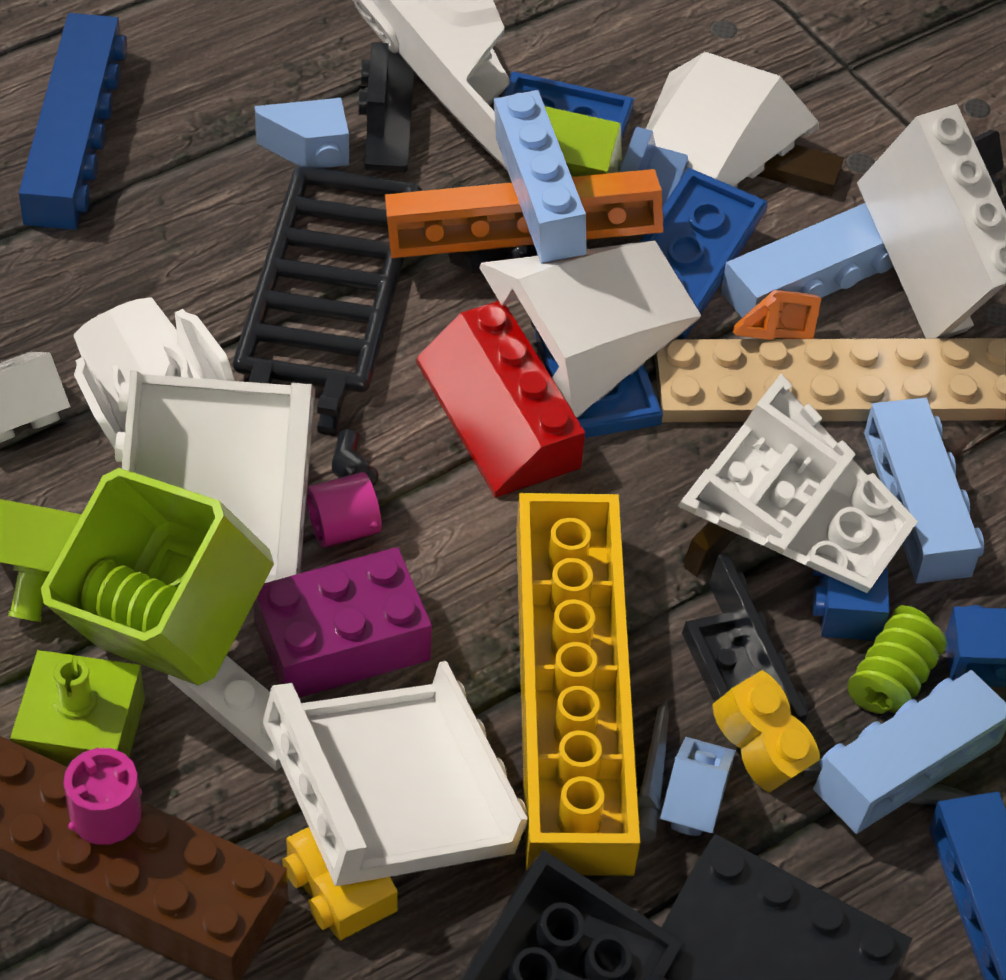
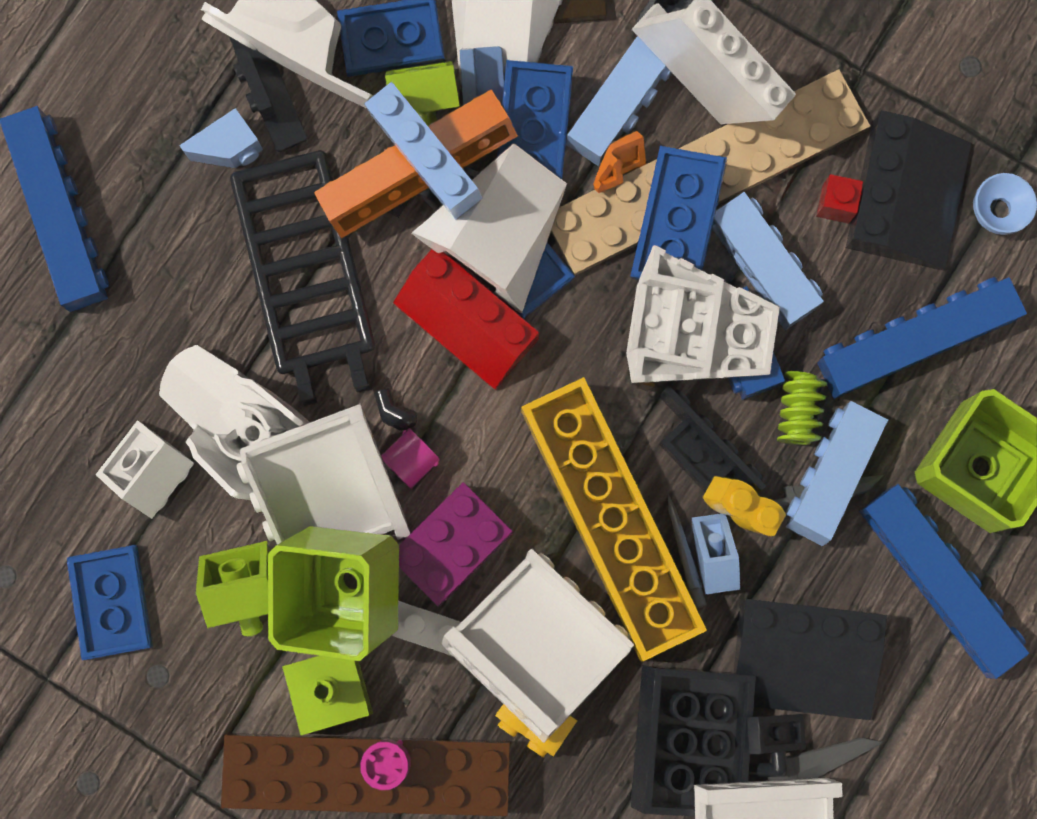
camera: 20 degrees left, 30 degrees up
(125, 595) = (325, 613): lime piece -> none
(847, 372) = (680, 206): none -> blue tile

